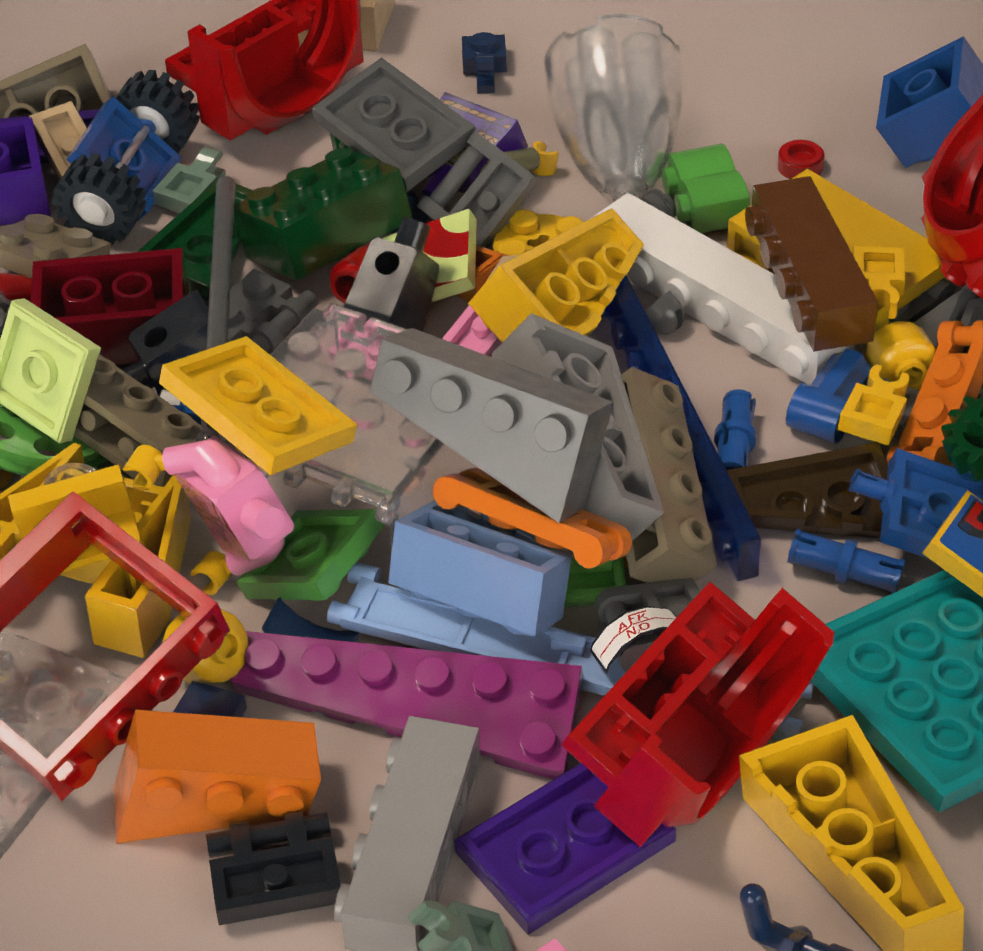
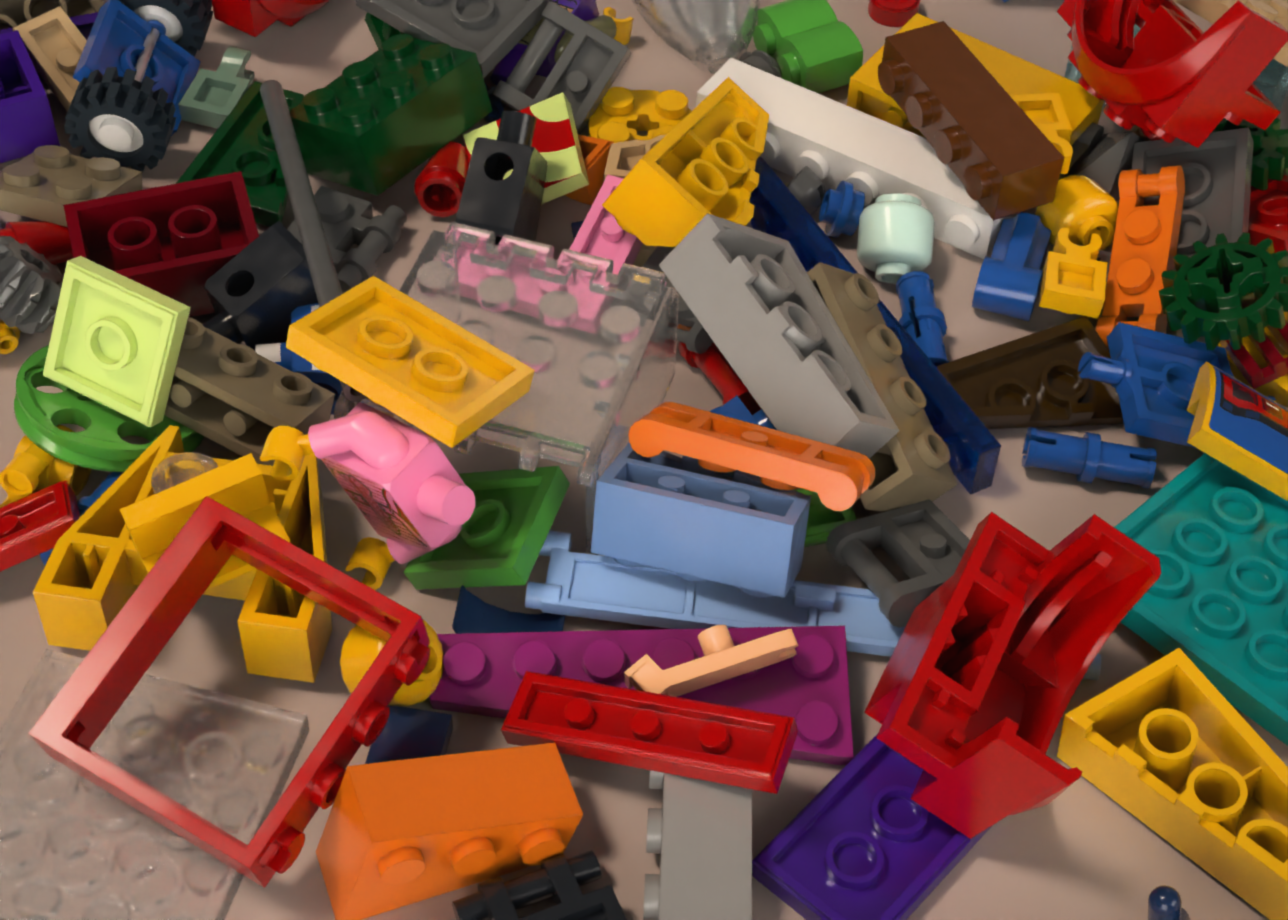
camera: 15 degrees left, 5 degrees up
(394, 723) = (652, 731): none -> red tile
(463, 680) = (719, 663): none -> light nougat piece
(500, 417) = (702, 340): wedge -> none
(627, 629) = (888, 577): white sticker -> none
(693, 332) = (842, 209): none -> blue plate
(731, 358) = (895, 236): none -> light aqua head

